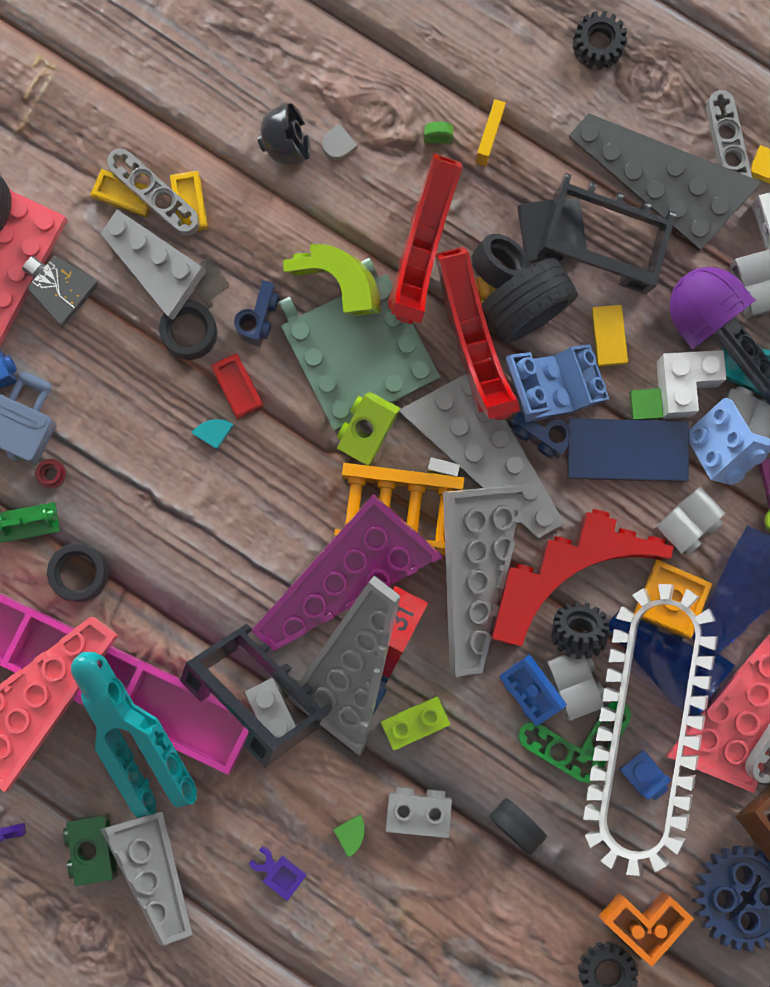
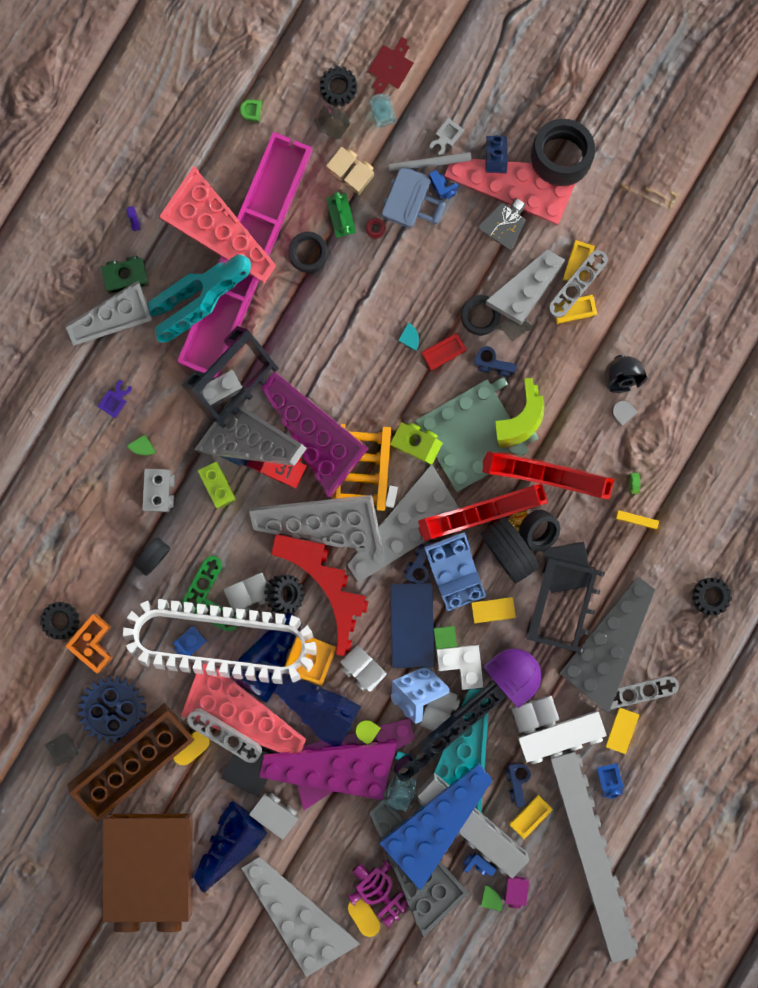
camera: 90 degrees right, 5 degrees up
(532, 690) = (242, 563): blue bracket -> none

